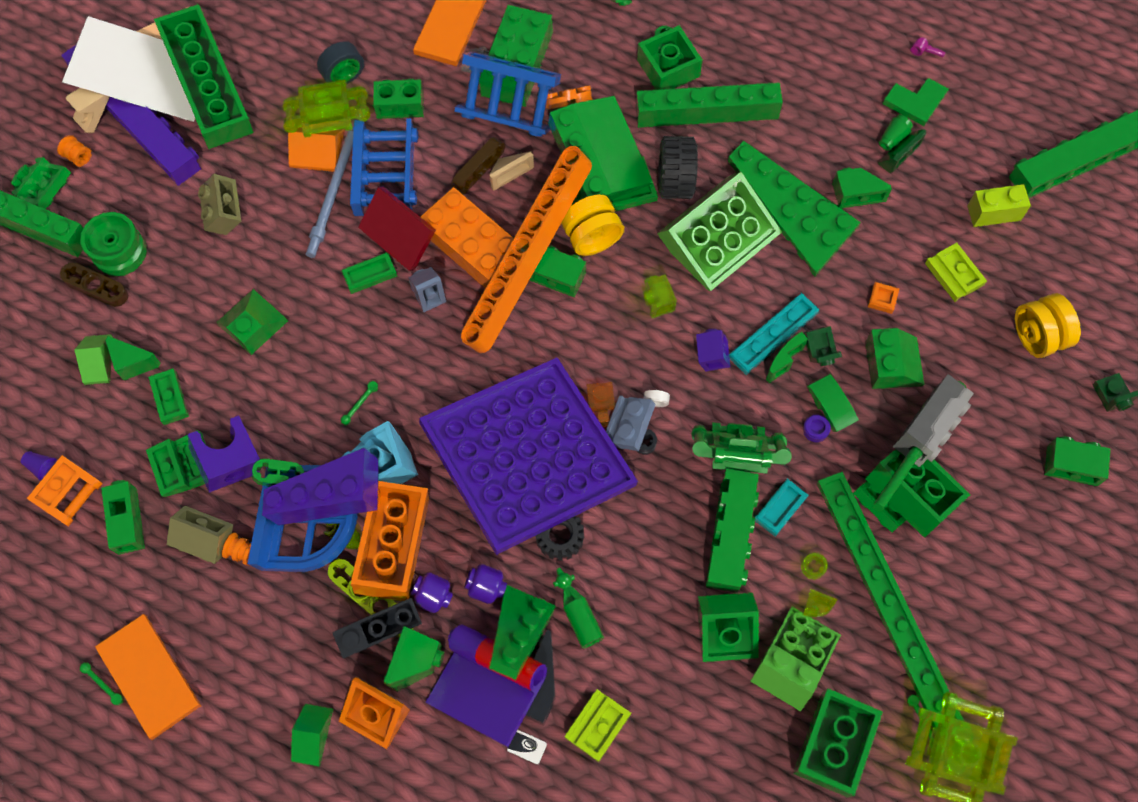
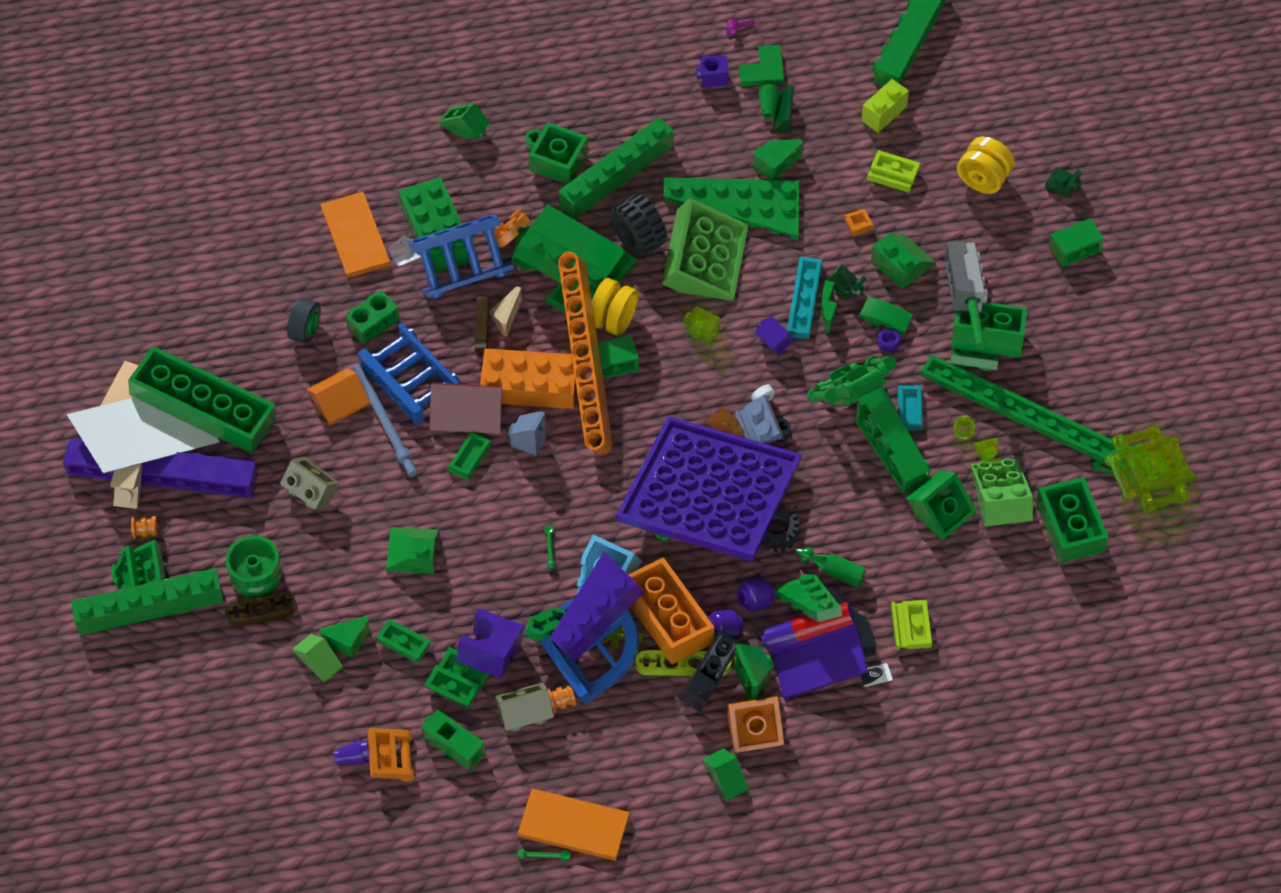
camera: 40 degrees left, 10 degrees down
(325, 108) = (325, 358): clear neon green brick -> none
(867, 74) = (713, 71): none -> dark purple brick

